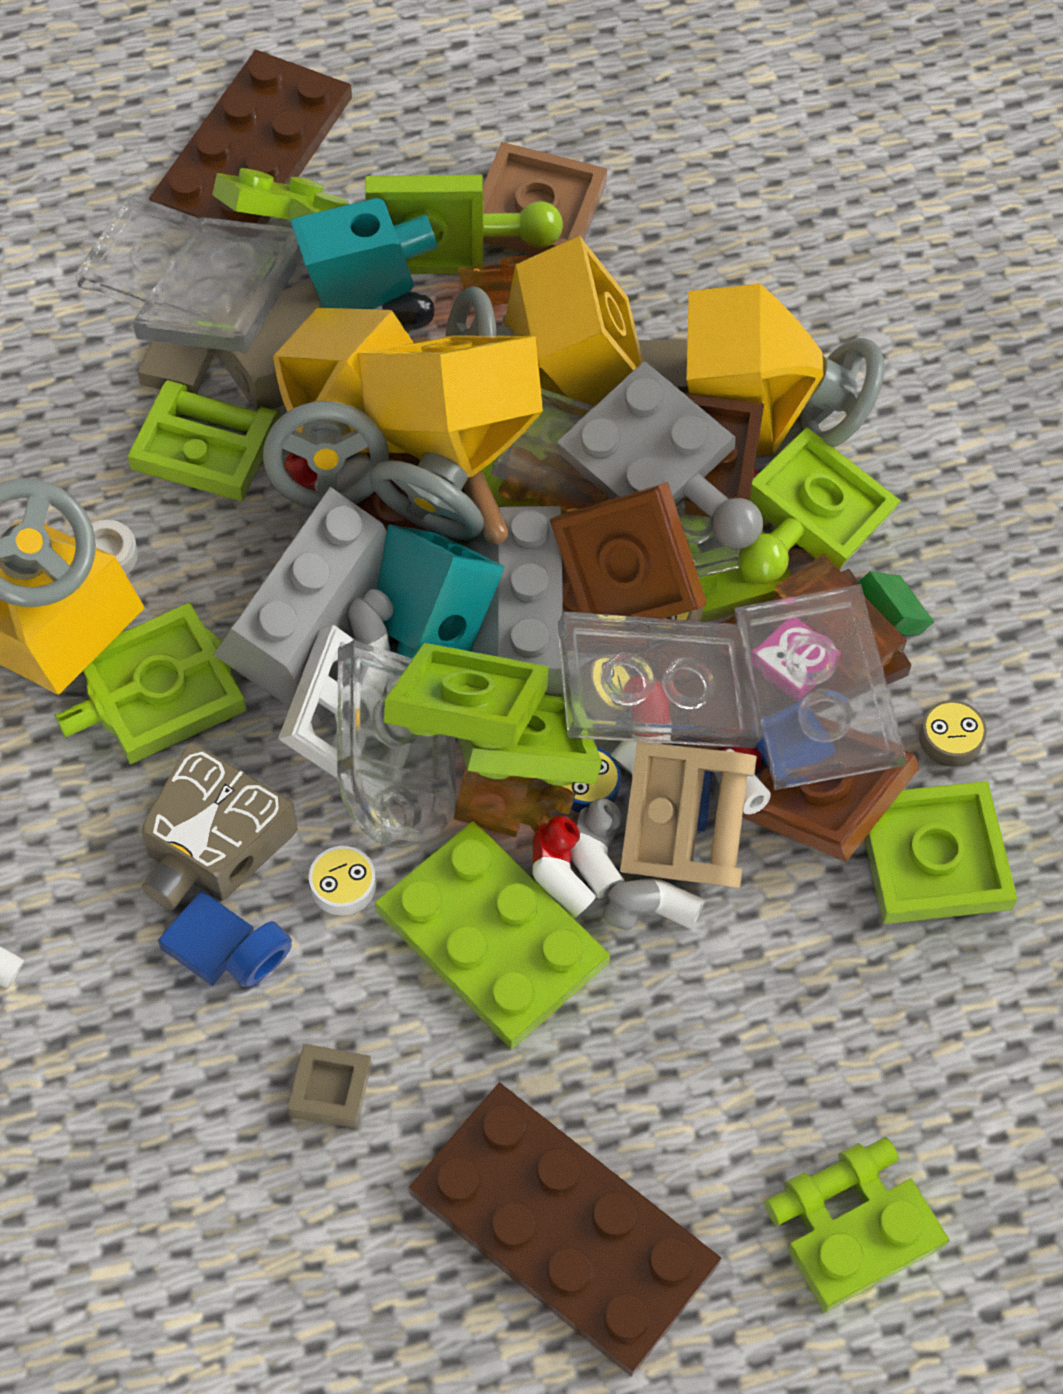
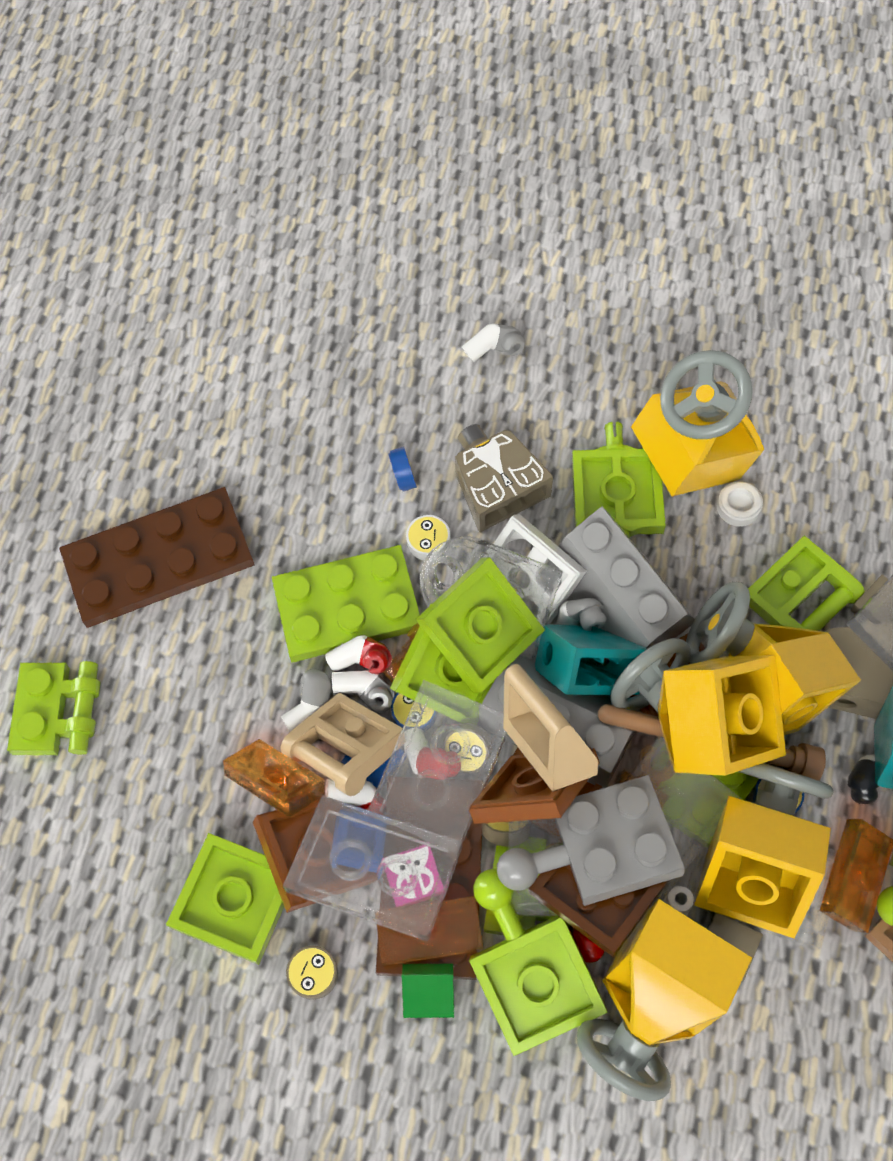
camera: 125 degrees right, 5 degrees up
(205, 937) = (432, 453): blue tile -> none
(329, 1086) = (308, 477): dark tan tile -> none
(583, 538) = (544, 733): none -> tan tile
(778, 871) = (274, 777): none -> clear orange plate

